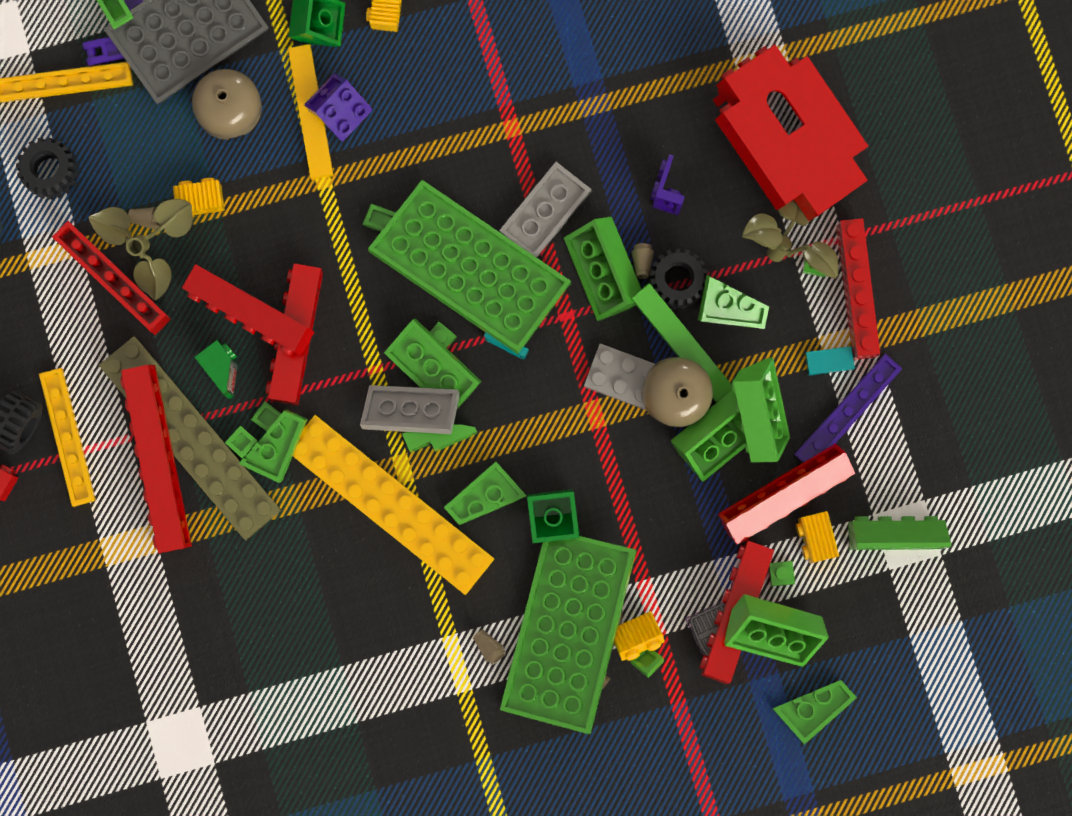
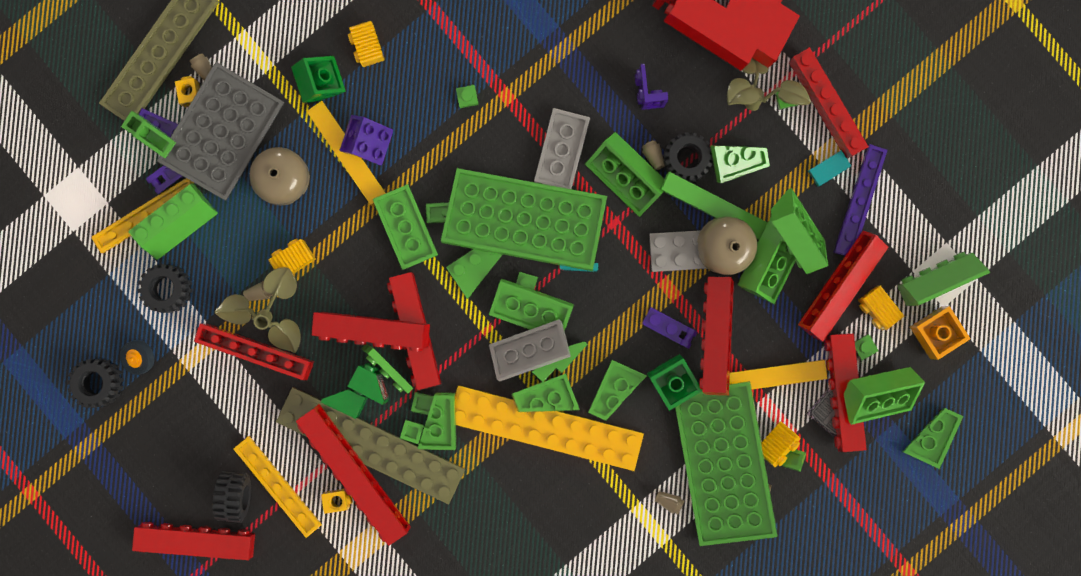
camera: 15 degrees left, 5 degrees up
(90, 101) = (173, 222): none -> bright green slope
(114, 480) = (329, 505): none -> yellow brick
(186, 377) = (348, 402): none -> green slope
(245, 361) = (386, 369): none -> bright green wing
(337, 218) = (405, 227): none -> bright green plate
(389, 295) = (472, 269): none -> bright green wing
(406, 468) = (547, 396): none -> bright green wing
(468, 109) = (467, 96): none -> bright green plate
(575, 455) = (668, 327): none -> dark purple plate
(622, 486) = (717, 336): none -> red brick
(670, 560) = (781, 374): none -> yellow tile
(871, 592) = (940, 332): none -> light orange brick

